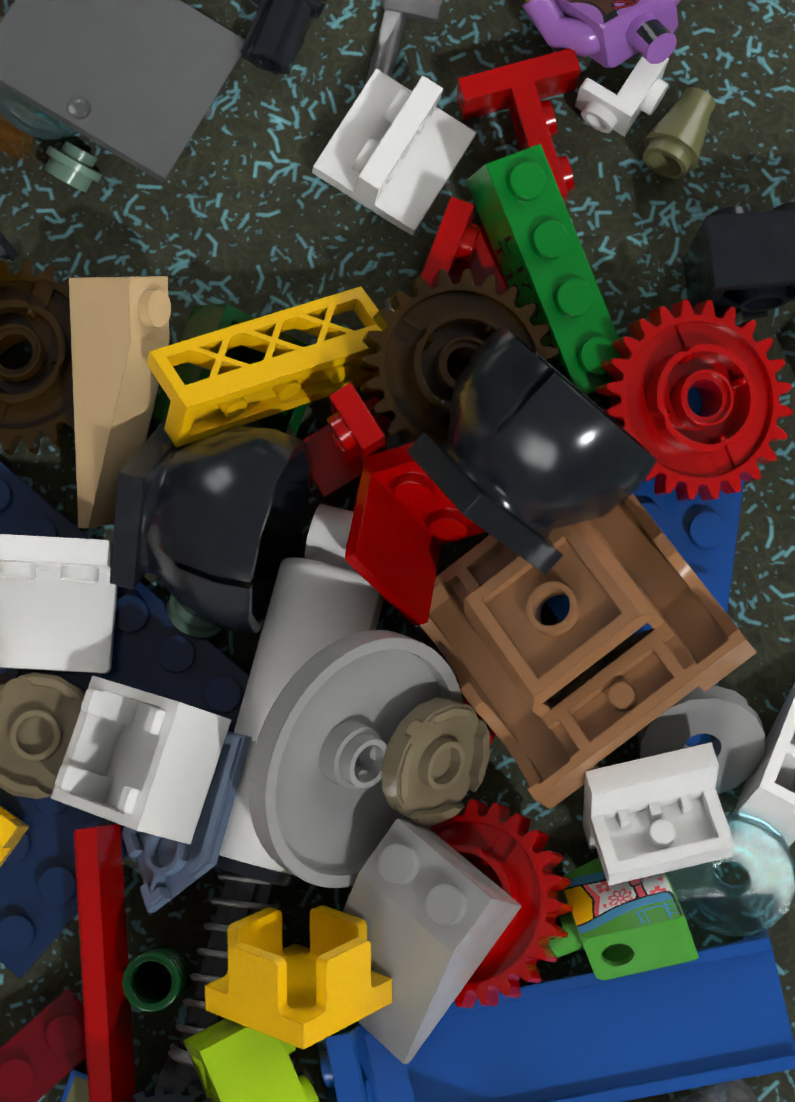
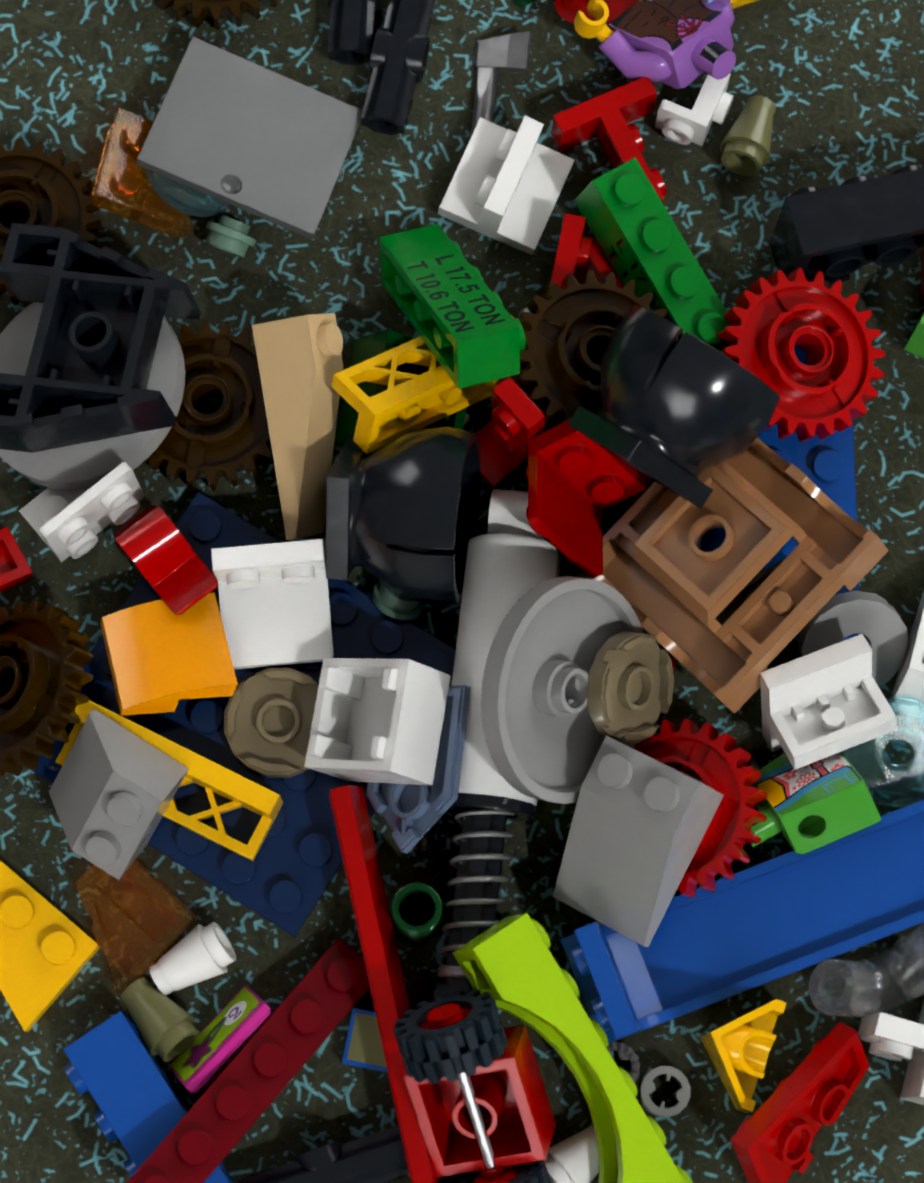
camera: 10 degrees left, 5 degrees down
(298, 990) = (566, 890): yellow panel -> none
(302, 288) = (451, 306): none -> green brick

